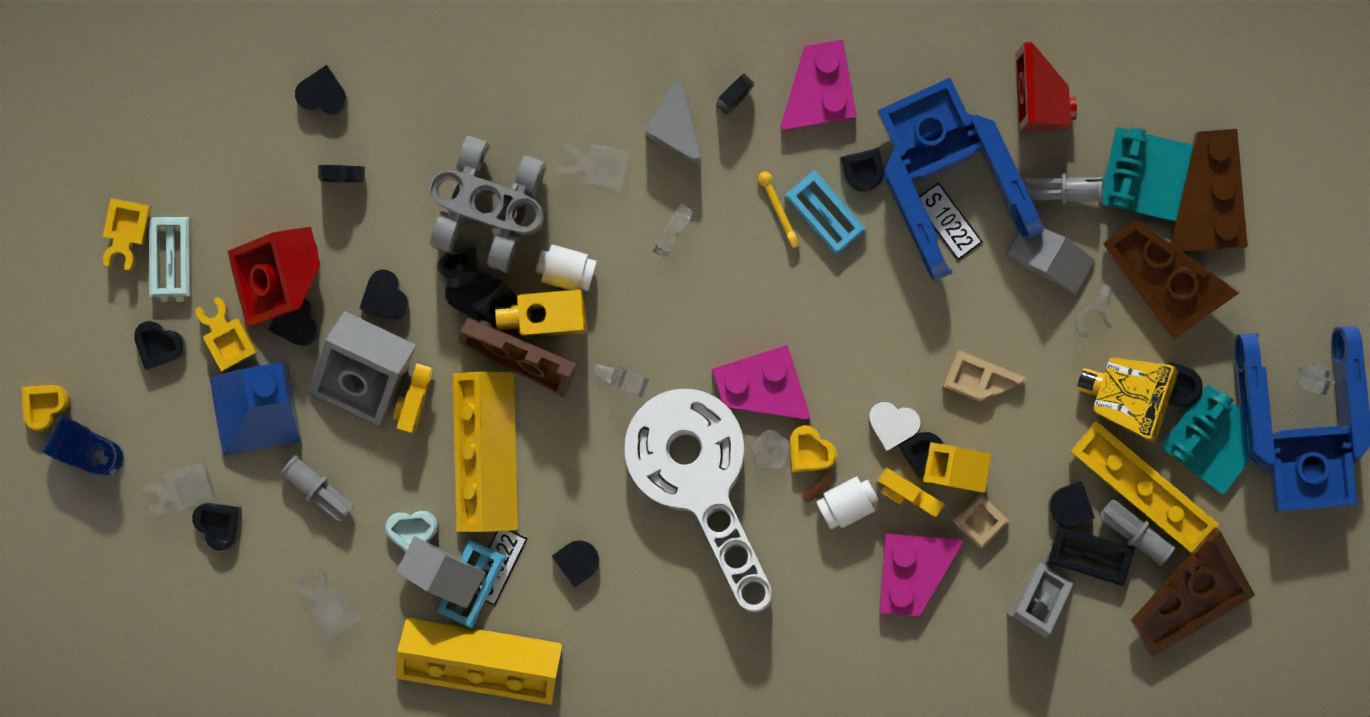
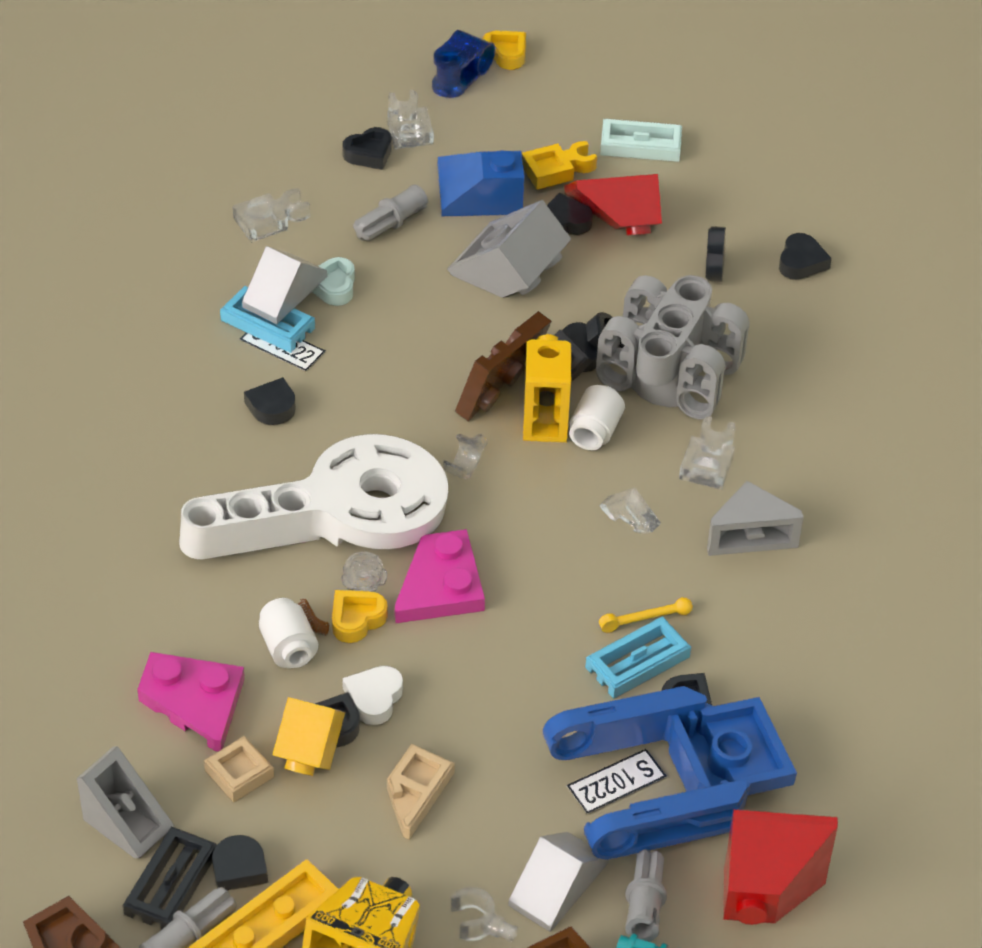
camera: 90 degrees right, 40 degrees down
(126, 225) = (670, 108): yellow plate -> none
(157, 345) = (554, 124): black tile -> none
(384, 297) = (583, 282): black tile -> none
(409, 409) = (463, 286): yellow plate -> none
(478, 660) = (185, 312): yellow panel -> none
(485, 451) = (402, 342): yellow panel -> none
(735, 93) = (786, 578): black tile -> none
(820, 88) = (790, 667): dark pink wing -> none
(898, 489) = (295, 679): yellow plate -> none

